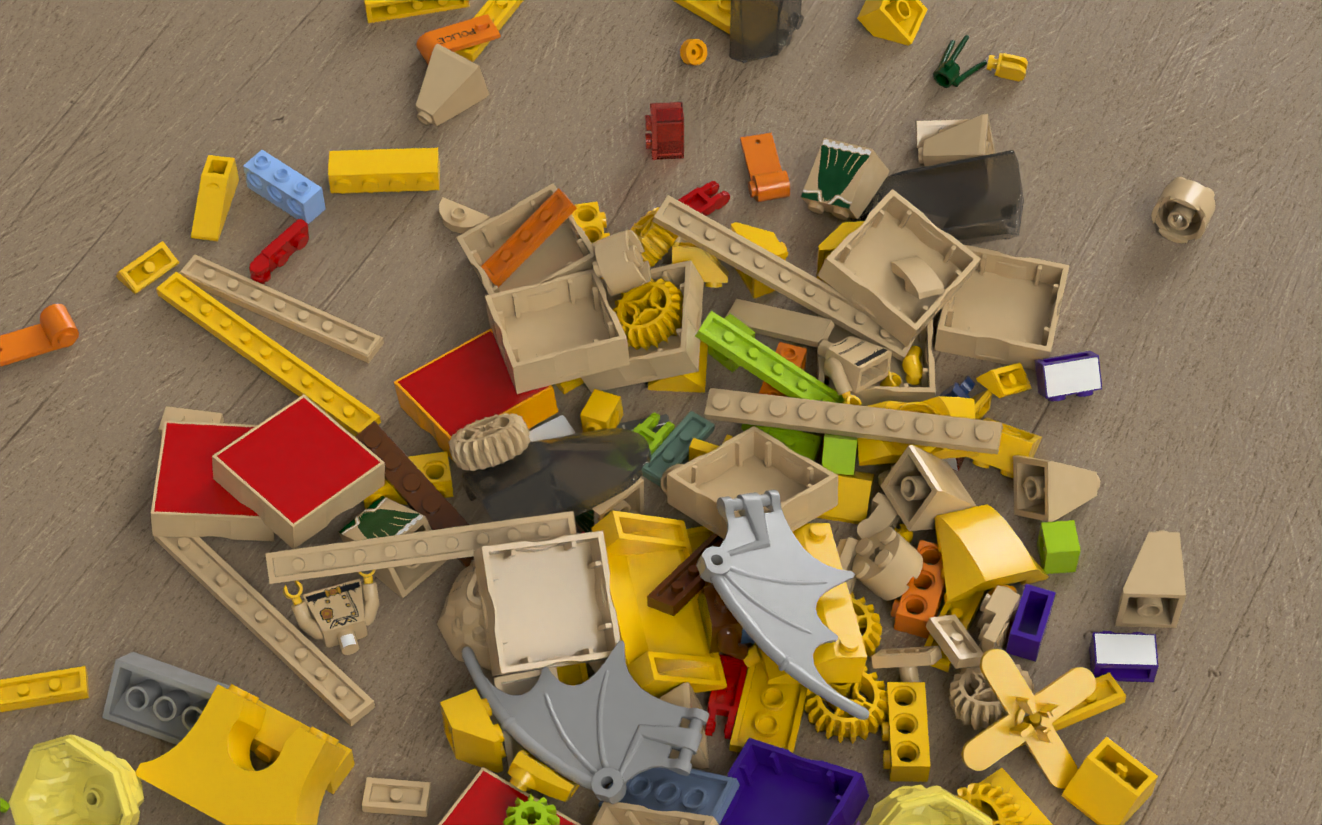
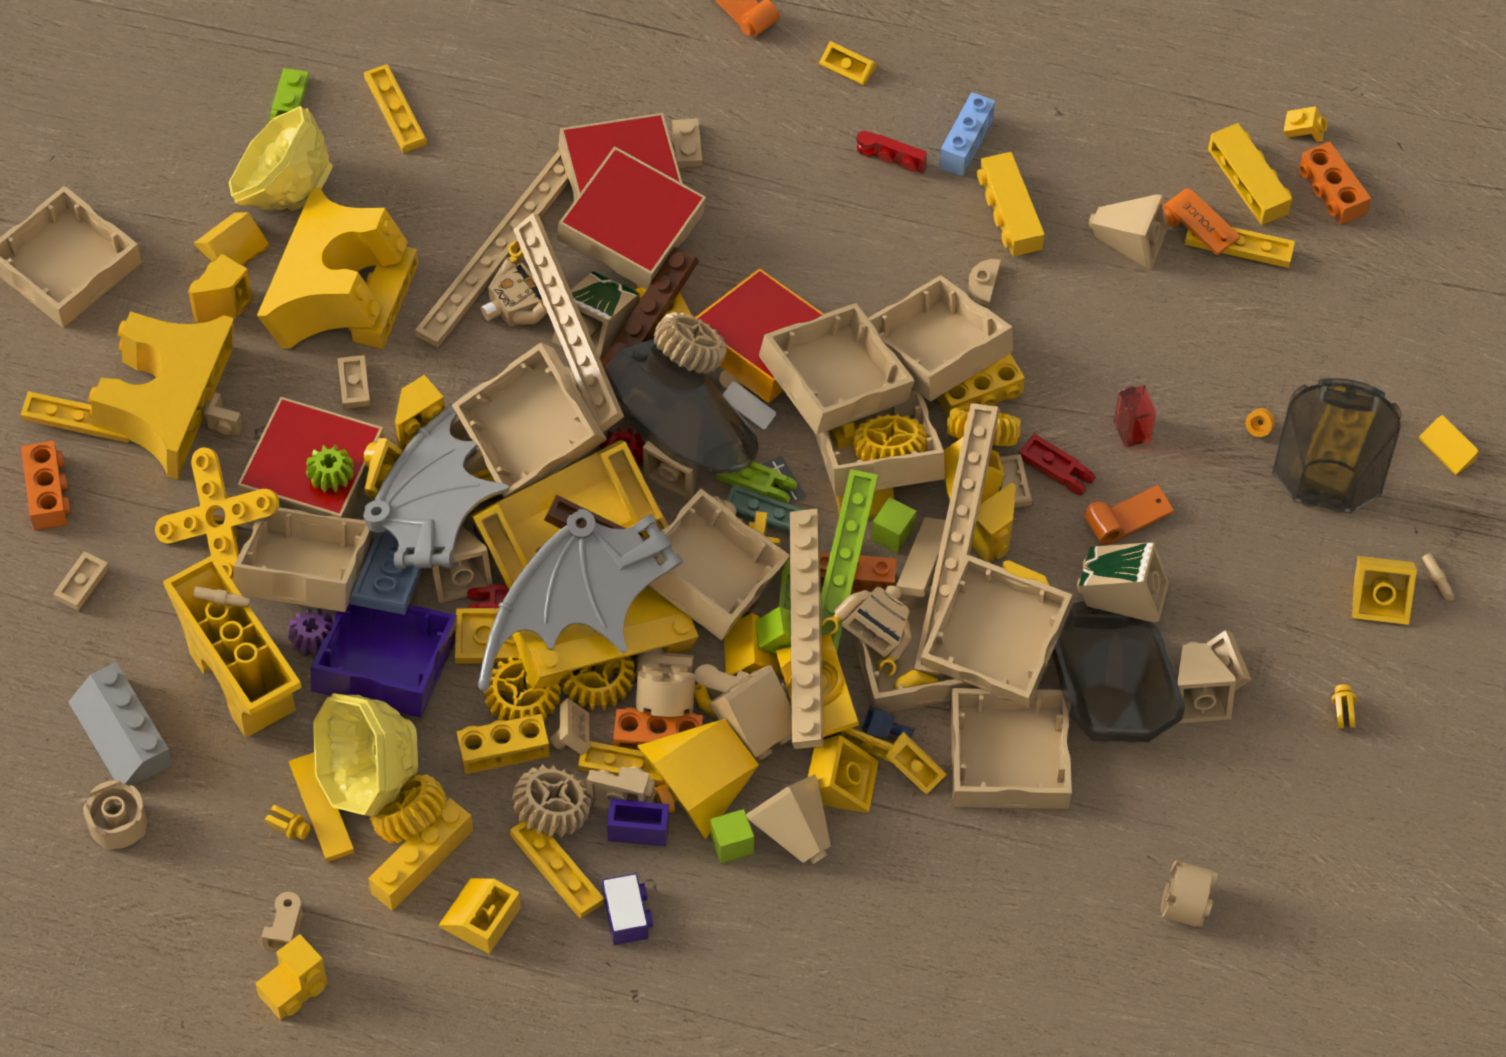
camera: 75 degrees right, 5 degrees up
(156, 697) = (409, 194): light grey slope -> none
(214, 197) = (936, 85): yellow slope -> none
(266, 353) = (774, 176): yellow plate -> none
(282, 309) = (833, 173): tan tile -> none
(528, 237) = (950, 327): orange tile -> none
(601, 411) = (780, 440): yellow brick -> none
(621, 262) = (922, 396): tan brick -> none
(918, 277) = (987, 646): tan slope -> none
(948, 71) = (1317, 654): dark green plant -> none
(955, 641) = (596, 756): tan plate -> none
(1012, 731) = (534, 834): yellow piece -> none
(1068, 375) = (939, 816): white brick -> none
(1155, 584) = (707, 917): tan slope -> none

